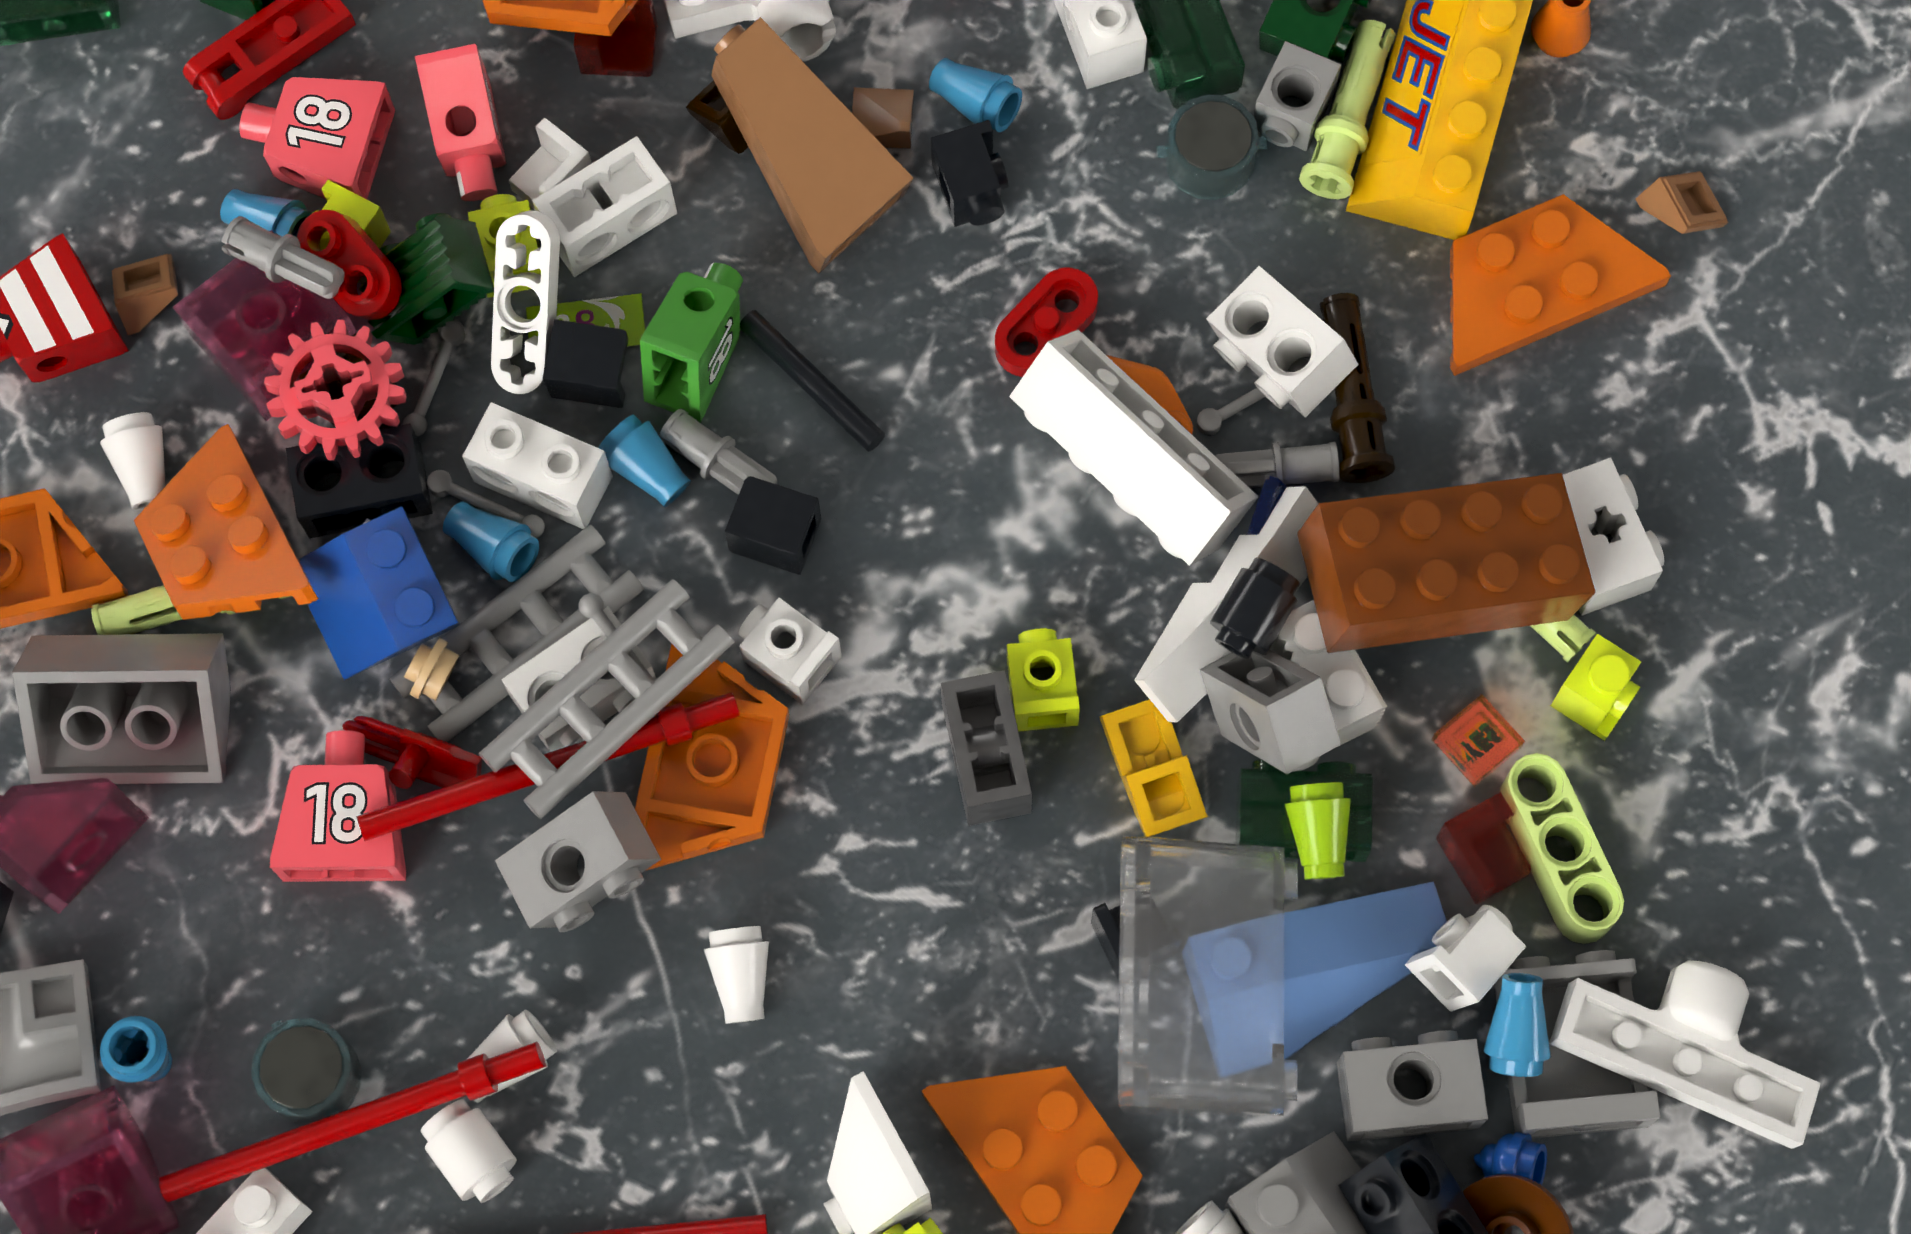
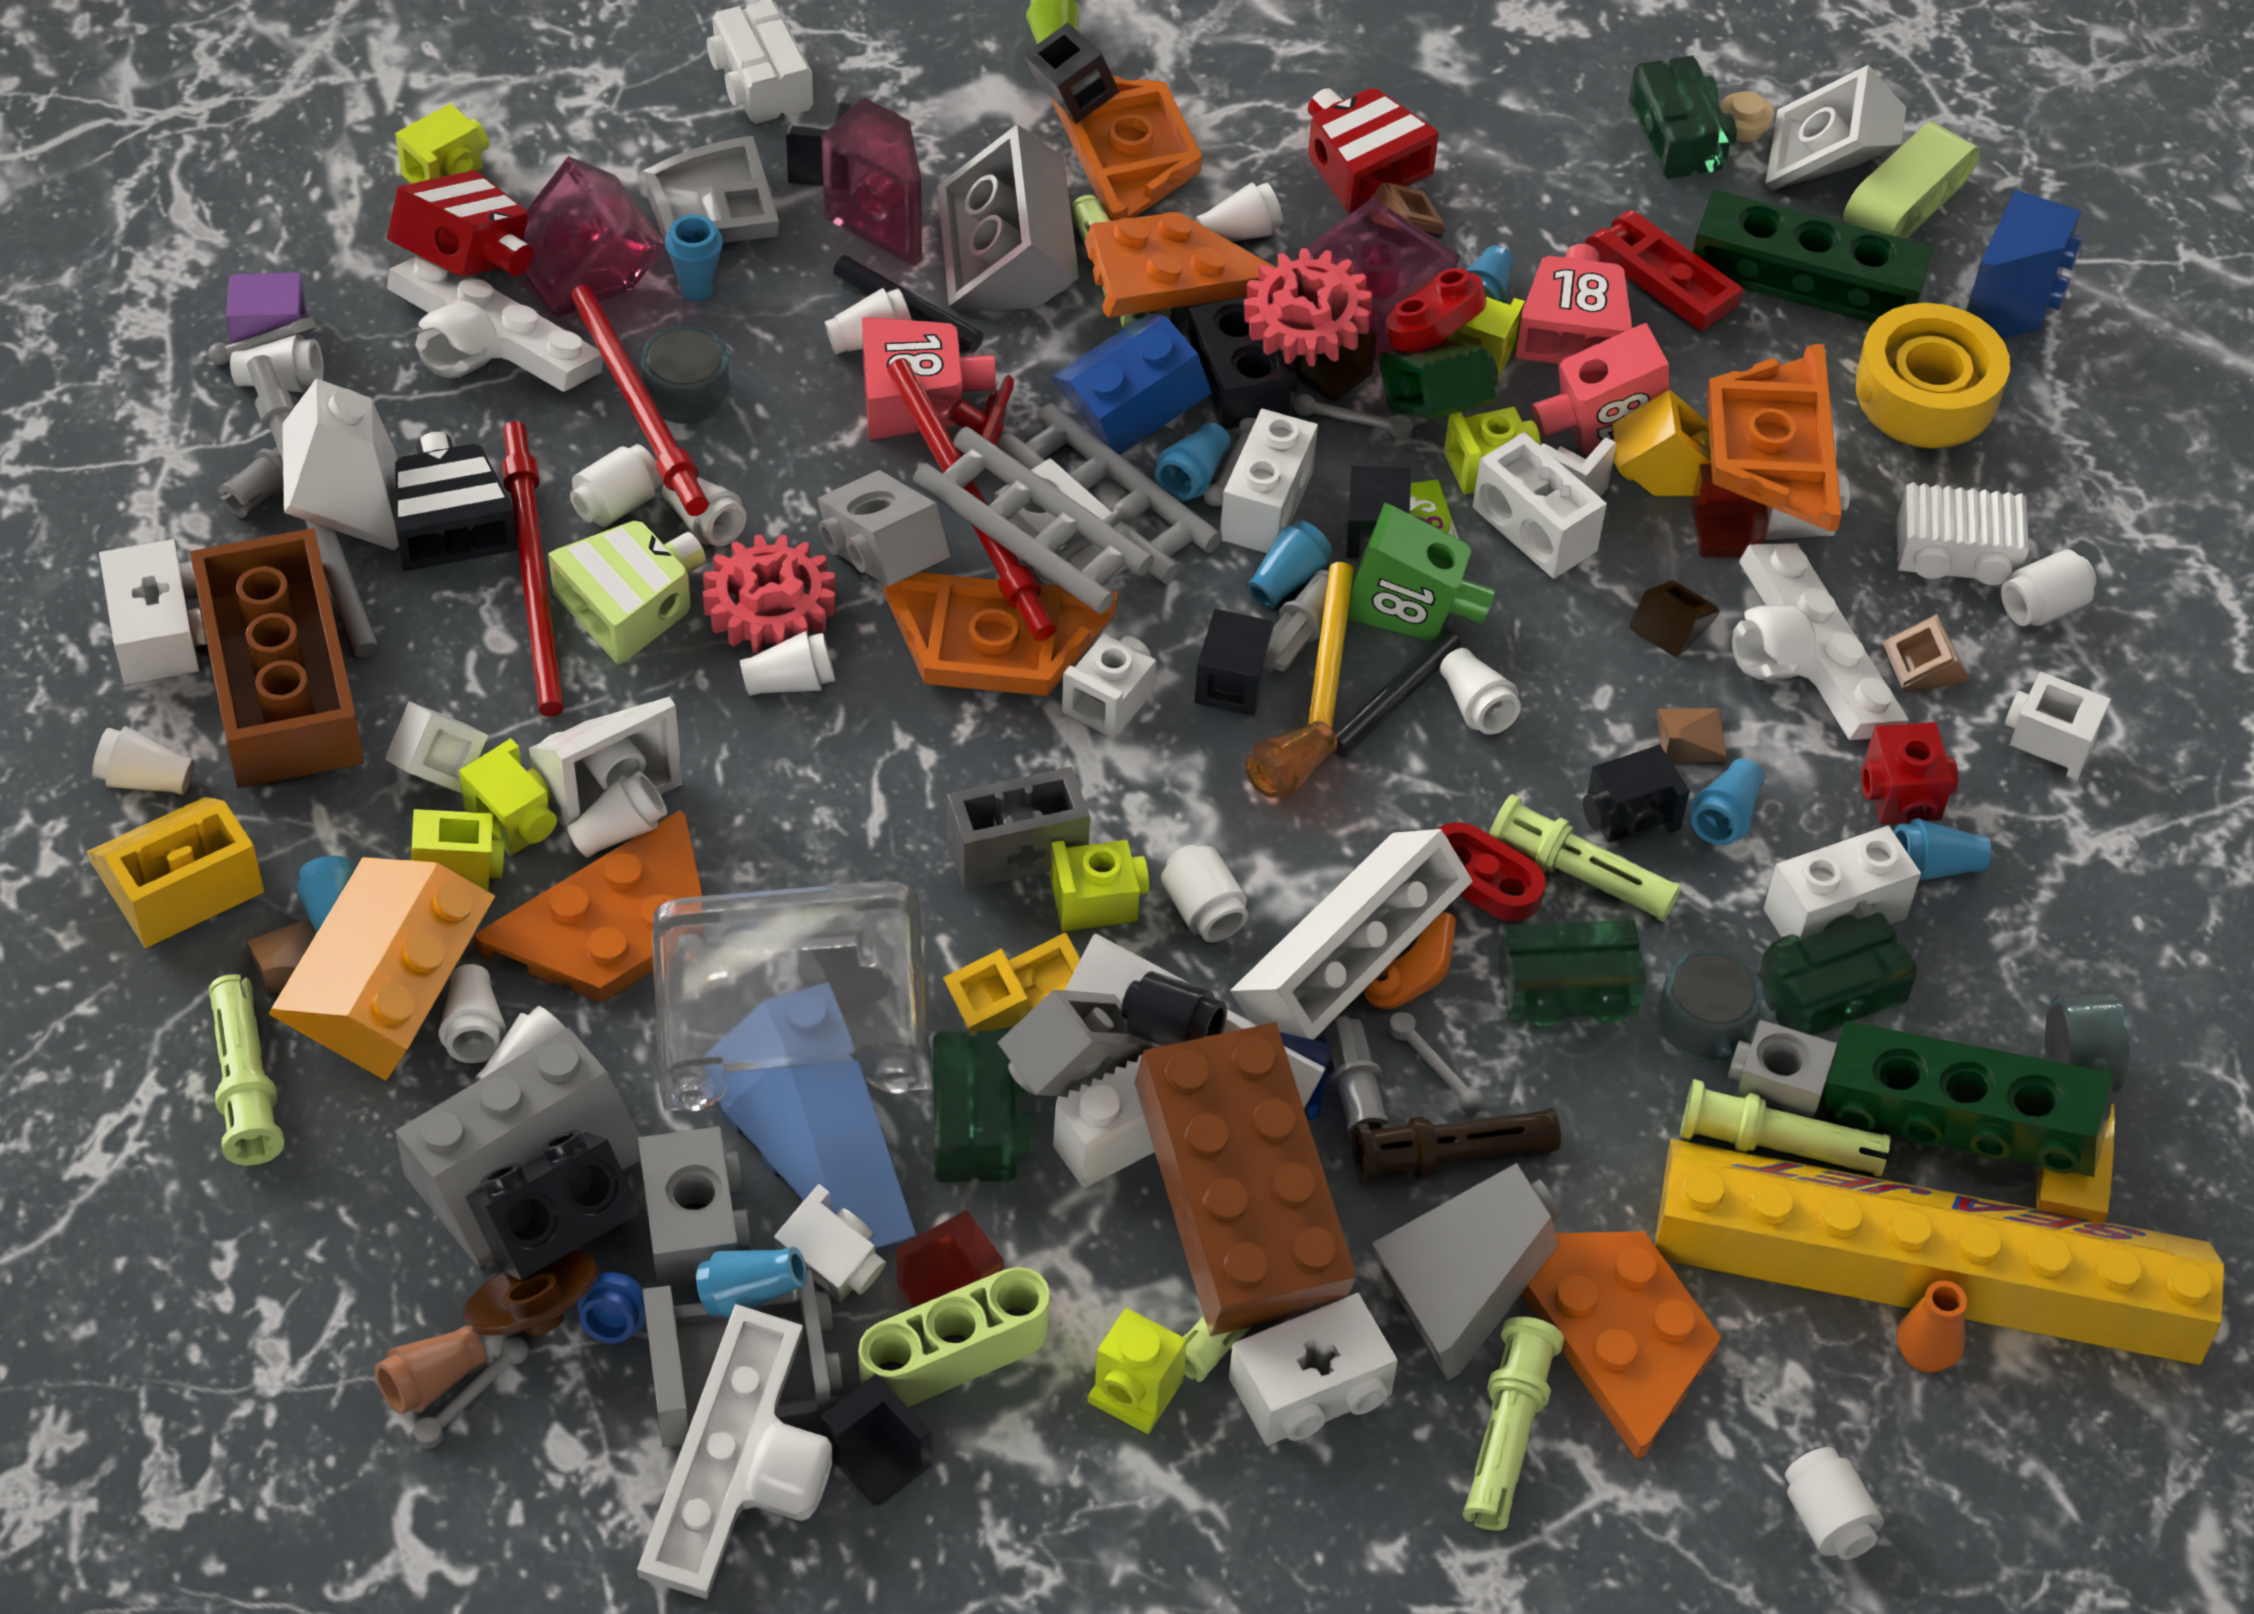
camera: 80 degrees right, 20 degrees down
(214, 826) = (919, 309): none -> black bar
(245, 860) = (846, 327): none -> white cone
(281, 257) = (1426, 251): light grey axle -> none
(431, 669) = (1056, 413): tan plate -> none
(510, 256) = (1457, 434): white beam -> none
(533, 76) = (1662, 446): none -> yellow slope
(614, 1140) = (626, 585): none -> yellowish green torso
(621, 1010) = (768, 592): none -> coral gear
(763, 430) = (1331, 643): none -> yellow bar
(807, 143) = (1632, 653): medium nougat slope -> none
(824, 299) = (1482, 694): none -> white cone
(900, 488) = (1286, 760): none -> clear orange cone
(936, 1148) = (620, 813): none -> white cone
(1022, 254) = (1555, 846): none -> yellowish green pin
(1060, 580) = (1205, 892): none -> white brick
(1171, 259) = (1571, 971): none -> clear green brick
(1288, 336) = (1487, 1057): white brick -> none
(1320, 827) = (946, 1082): lime cone -> none
(1478, 740) = (1077, 1274): clear orange tile -> none
(1500, 386) = (1469, 1262): none -> light grey slope
(1618, 367) = (1517, 1394): none -> yellowish green pin
(1661, 927) = (877, 1440): none -> black panel
(1683, 203) = (1737, 1468): medium nougat slope -> none
(1731, 130) = (1833, 1504): none -> white brick

